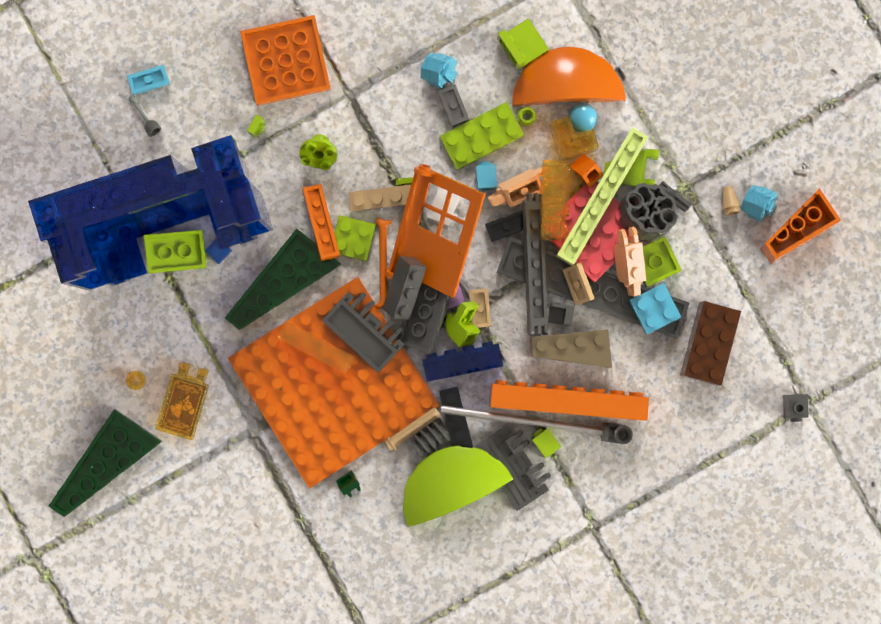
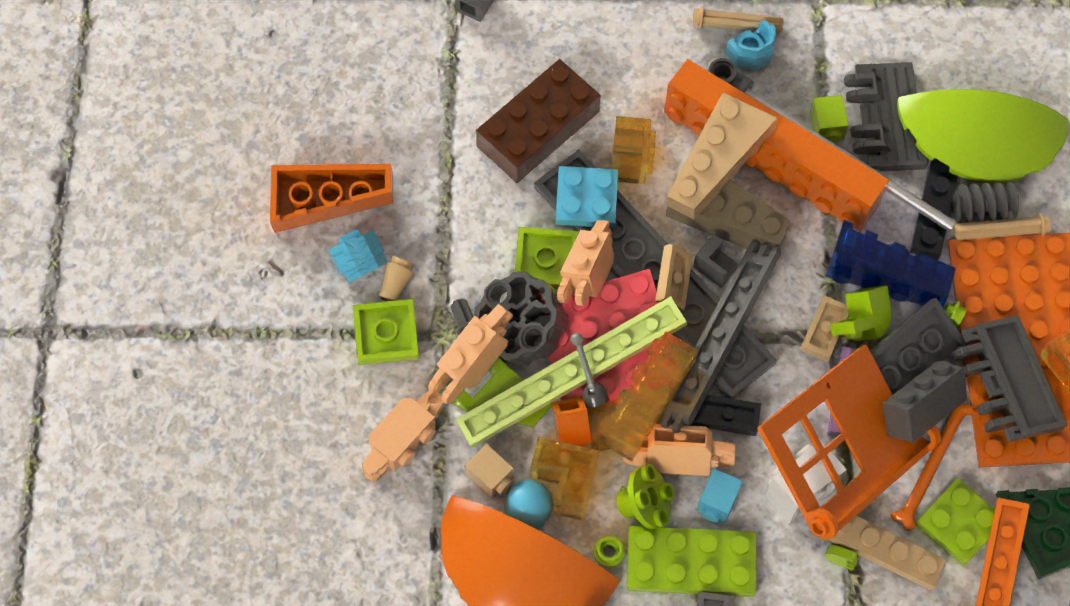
camera: 145 degrees left, 20 degrees down
(414, 356) = (955, 312): none -> lime plate
(522, 152) = (646, 497): none -> lime plate
(583, 189) = (594, 393): none -> hinge
(595, 371) = (724, 145): none -> tan wedge
(613, 121) = (490, 472): none -> tan brick
(614, 464) = (753, 49): none -> medium azure hair
(633, 480) = (733, 20): none -> tan axle
(647, 355) = (633, 149): none -> clear yellow brick
(661, 172) = (472, 354): none -> light nougat hinge
(672, 115) = (401, 434): none -> light nougat hinge
(716, 168) = (385, 332): none -> lime plate

